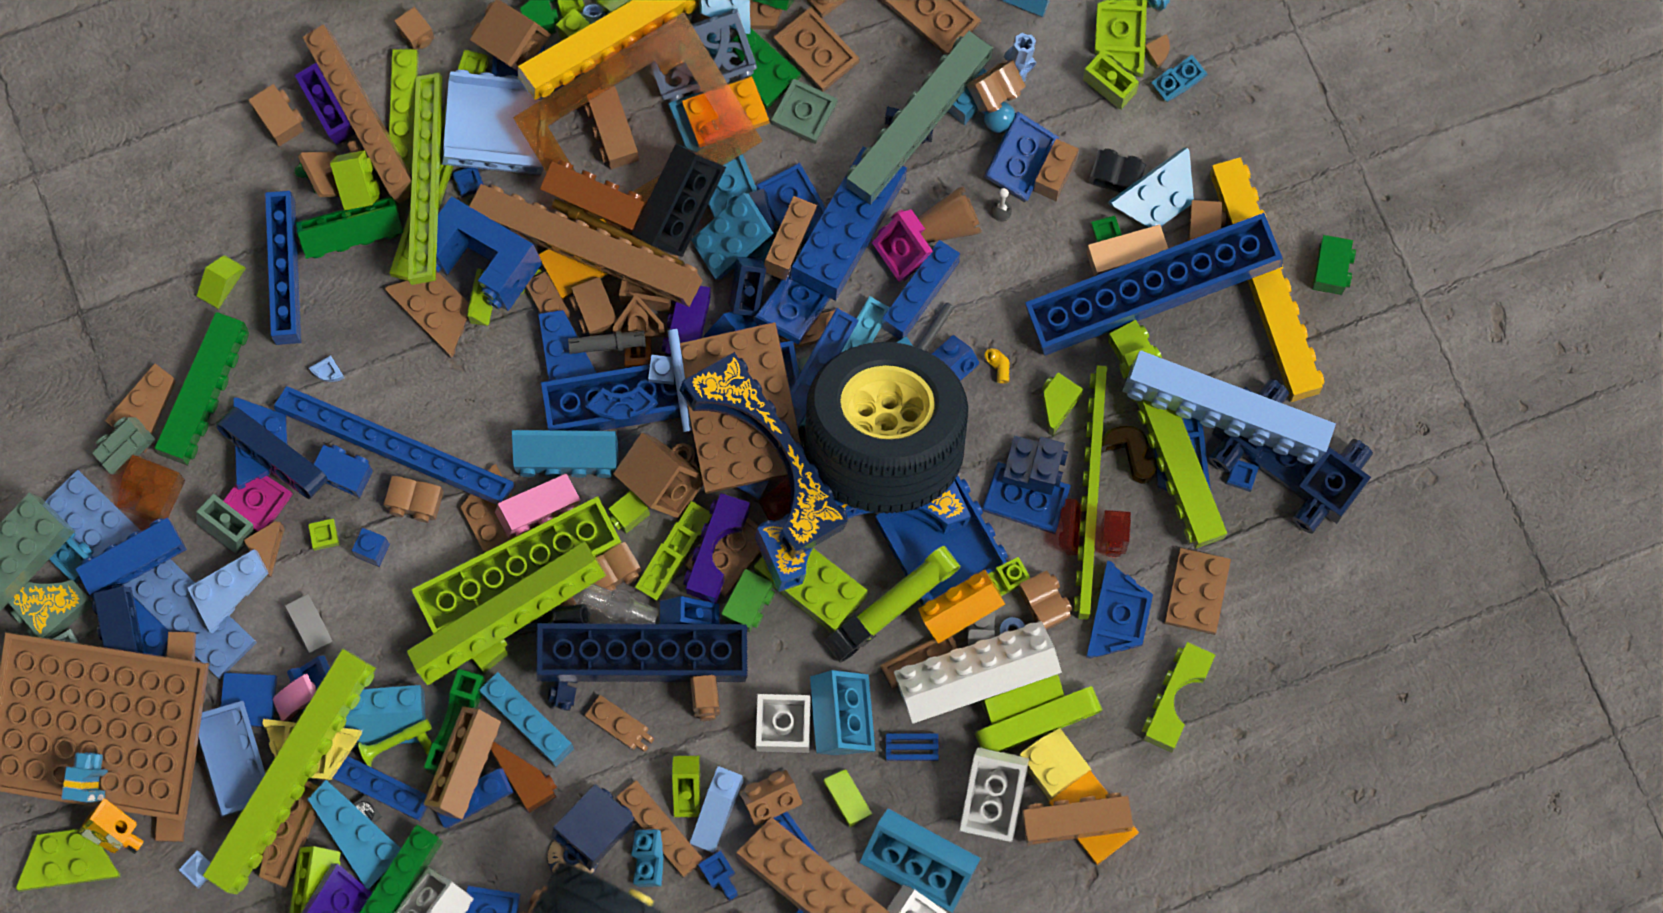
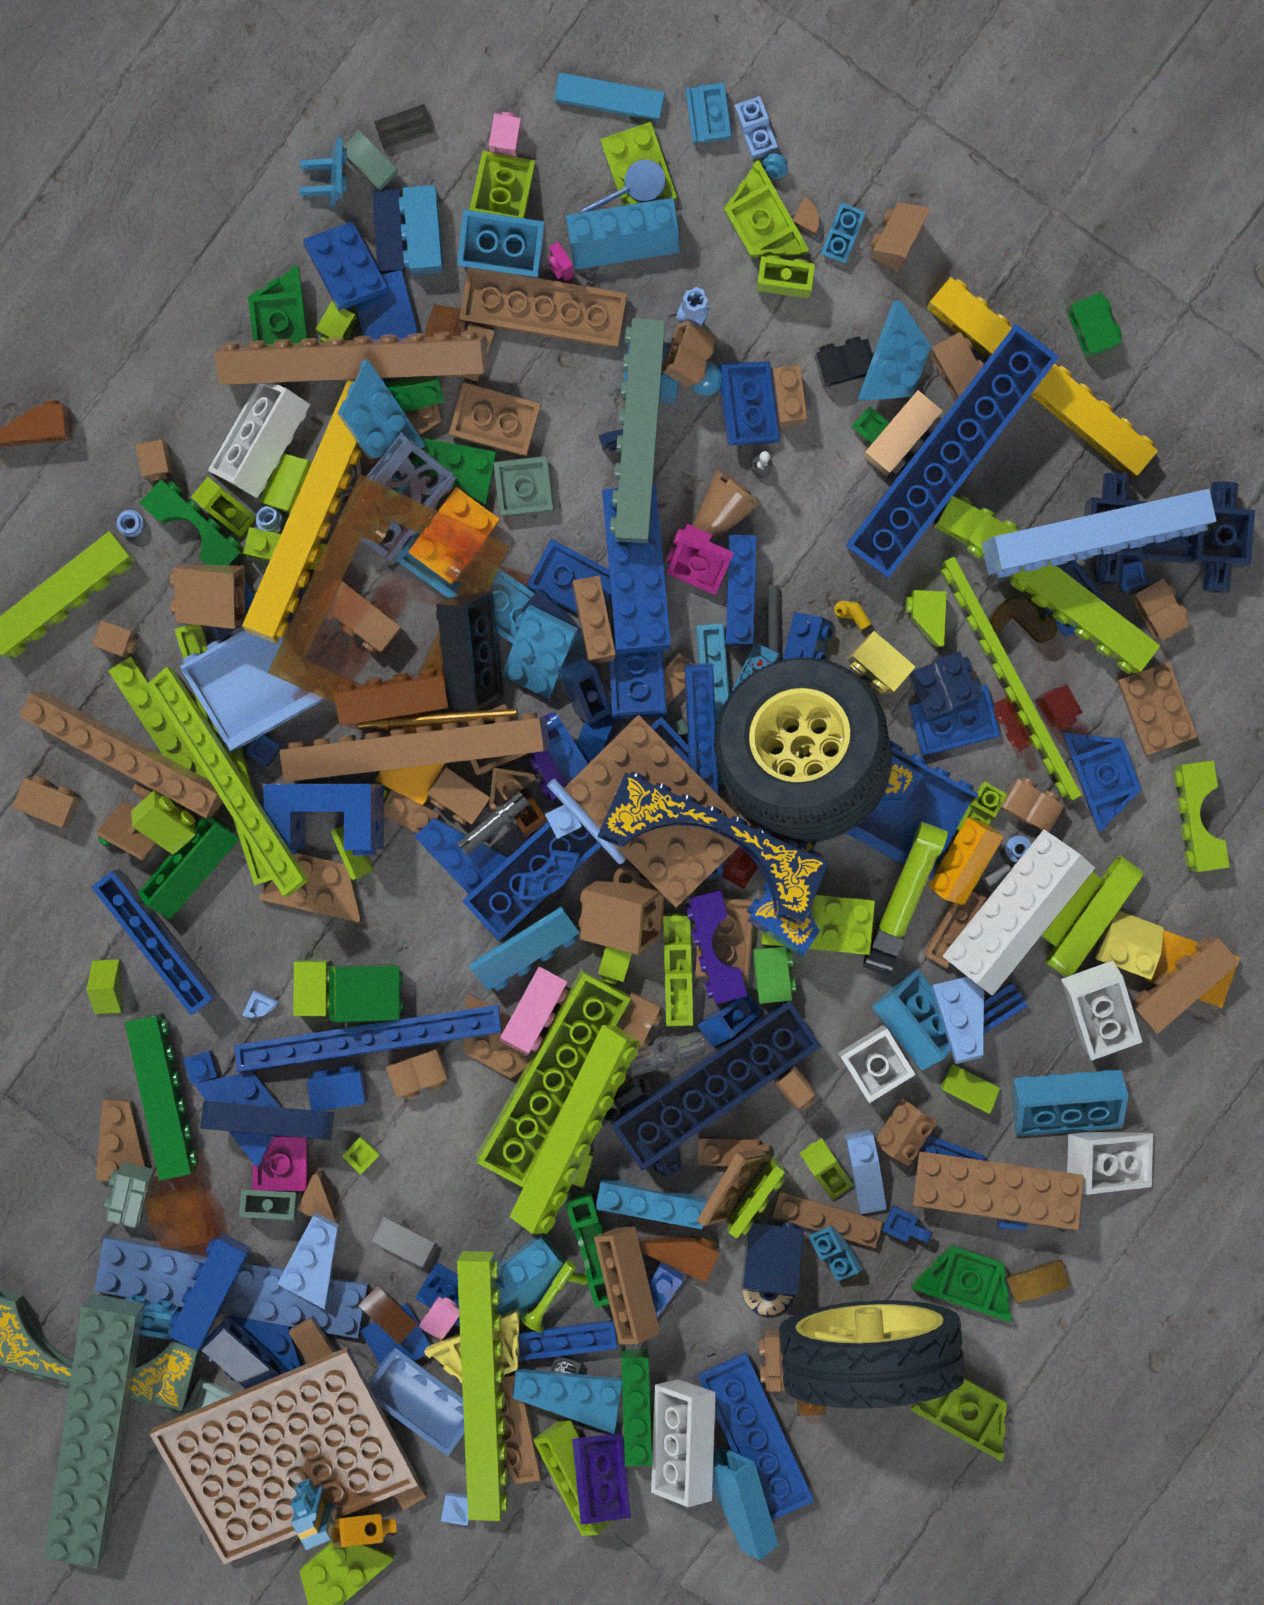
camera: 30 degrees left, 15 degrees up
(248, 387) = (201, 1067): none -> blue plate
(255, 671) = (387, 1314): none -> reddish brown slope
(325, 104) = (82, 766): dark purple brick -> none
(370, 547) = (411, 1141): blue brick -> none
(378, 380) = (311, 988): none -> lime brick
(416, 407) = (364, 992): none -> green brick
(600, 743) = (732, 1187): none -> medium nougat tile
(613, 766) = (756, 1198): none -> lime plate
(700, 316) = (564, 750): none -> blue plate
(878, 729) = (962, 1015): none -> light blue wing
(994, 411) = (880, 664): none -> light yellow brick
(1221, 104) = (898, 235): none -> medium nougat slope
(1247, 513) = (1160, 610): none -> medium nougat brick

